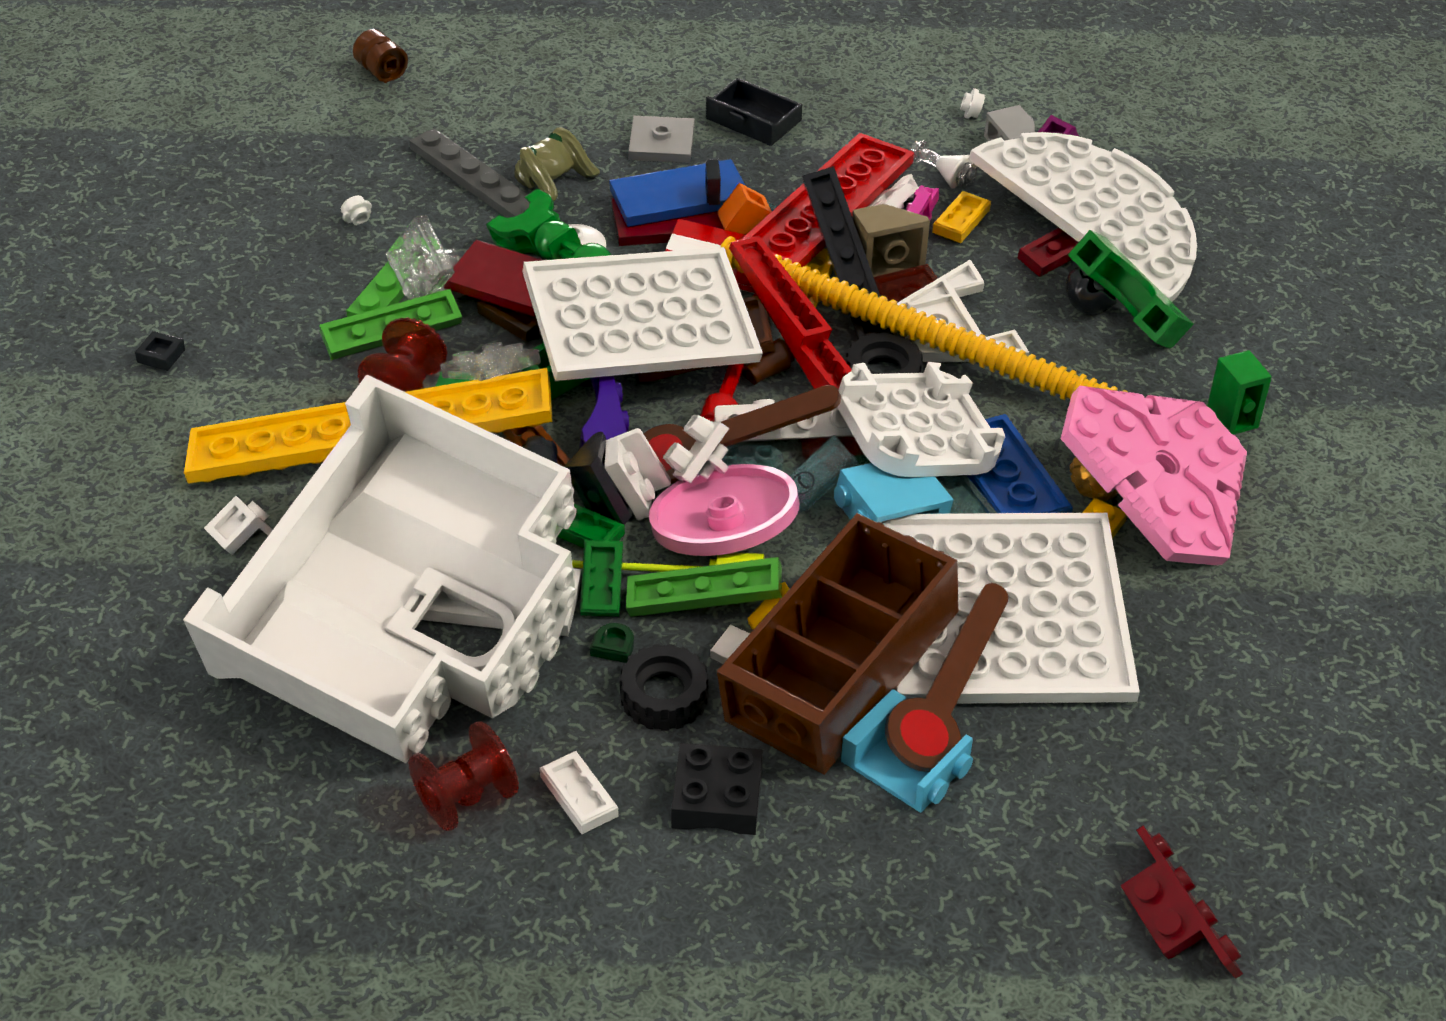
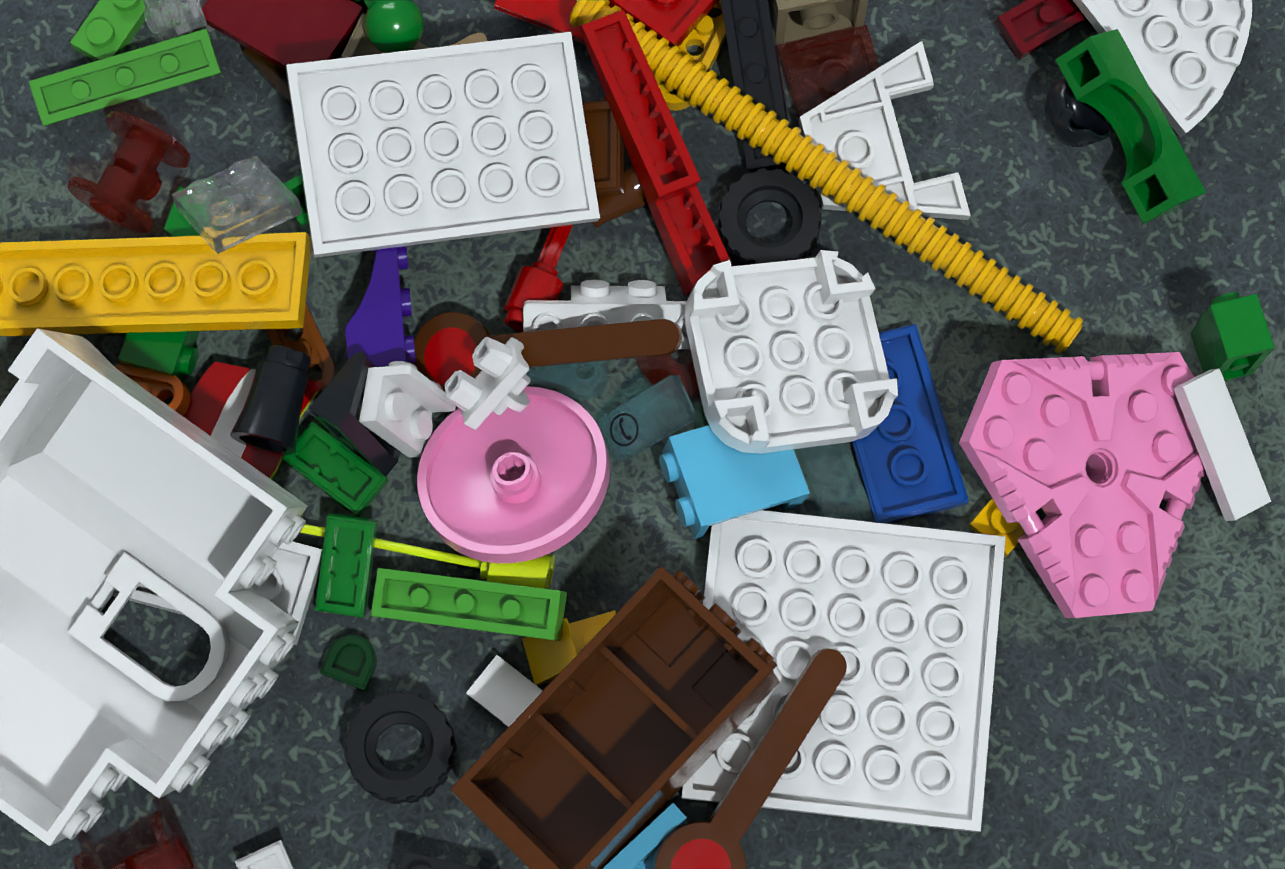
camera: 10 degrees right, 30 degrees up
(1250, 453) = (1222, 444): none -> white tile

